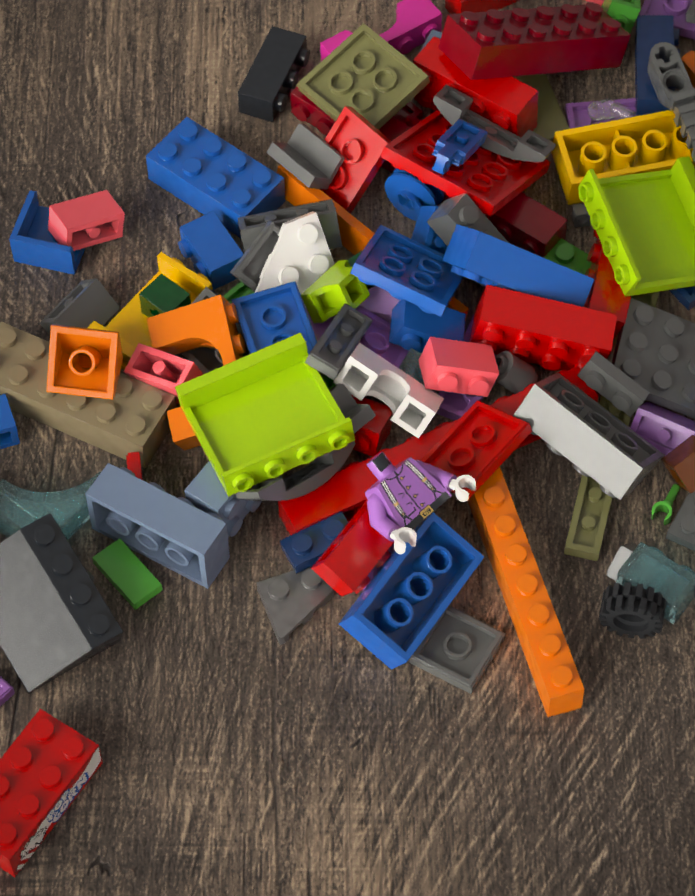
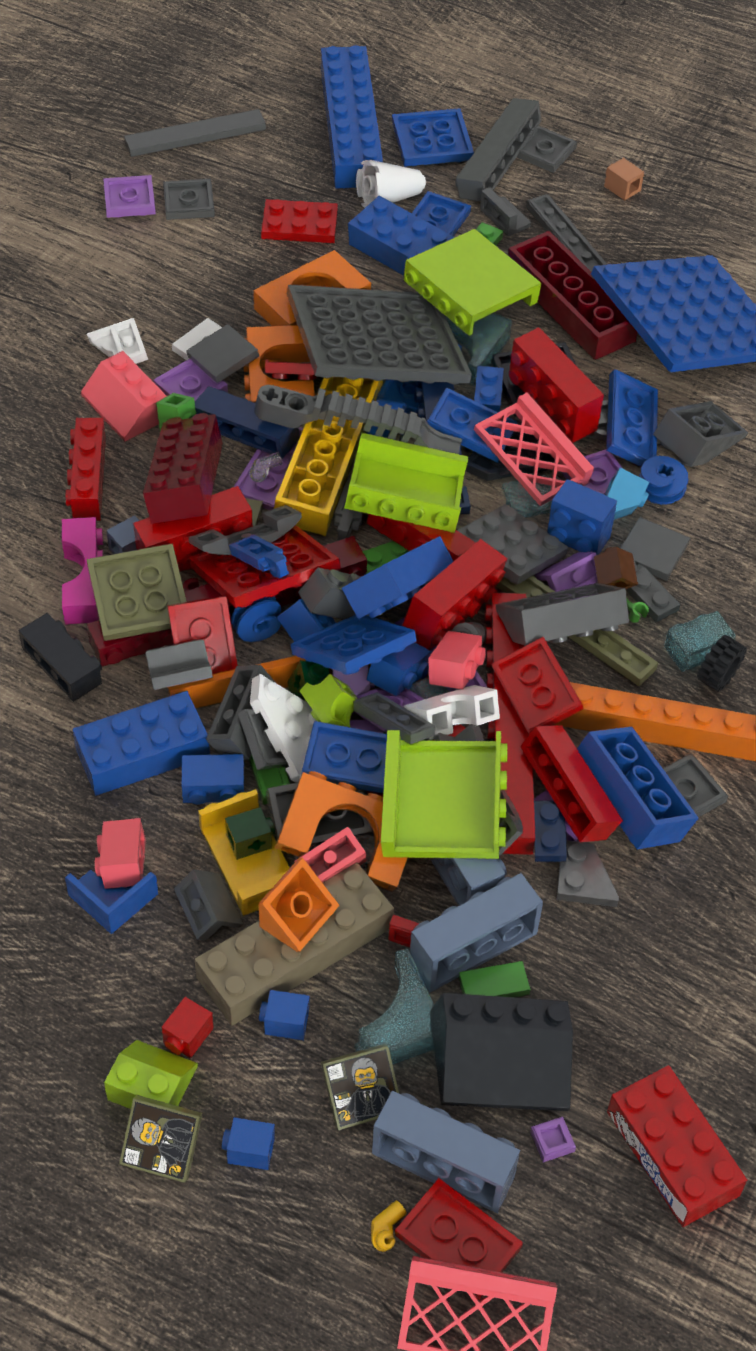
camera: 65 degrees left, 5 degrees down
(408, 496) = (573, 739): medium lavender torso -> none
(613, 384) = (527, 577): dark grey plate -> none
(619, 559) = (669, 650): tile -> none

